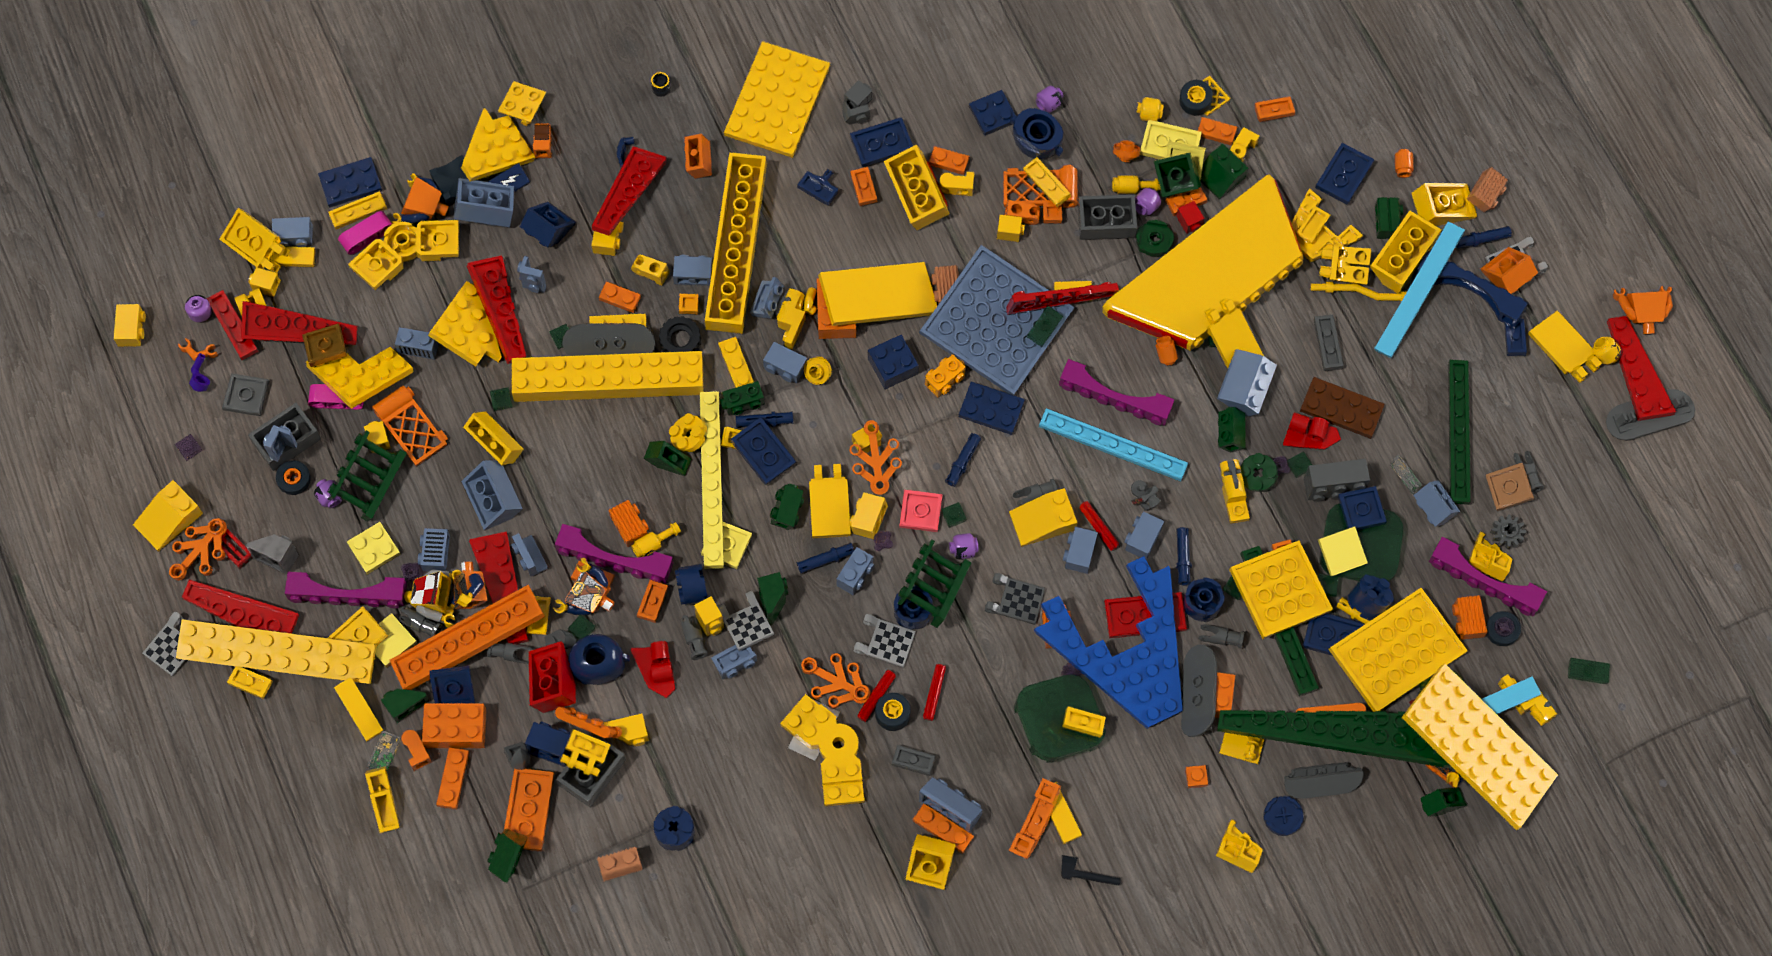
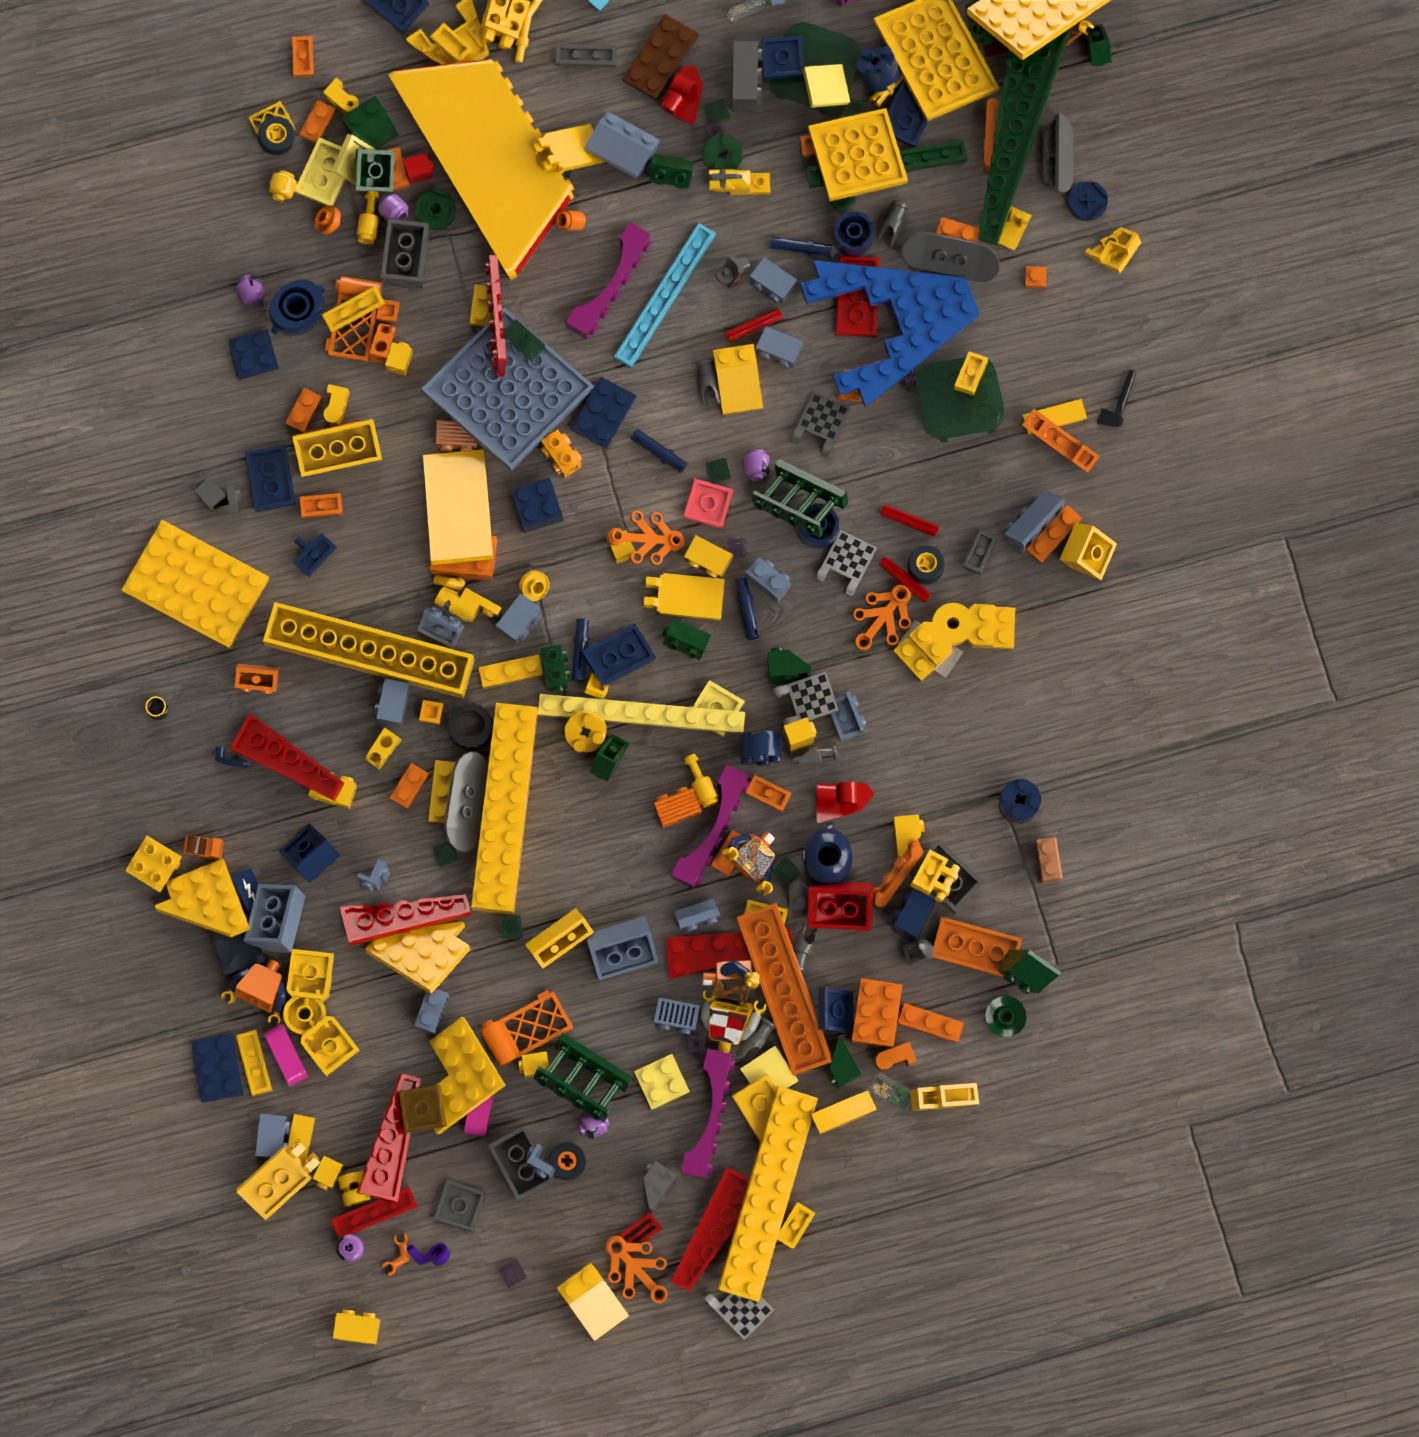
camera: 80 degrees left, 10 degrees up
(461, 836) = (1011, 1007): none -> dark green dish

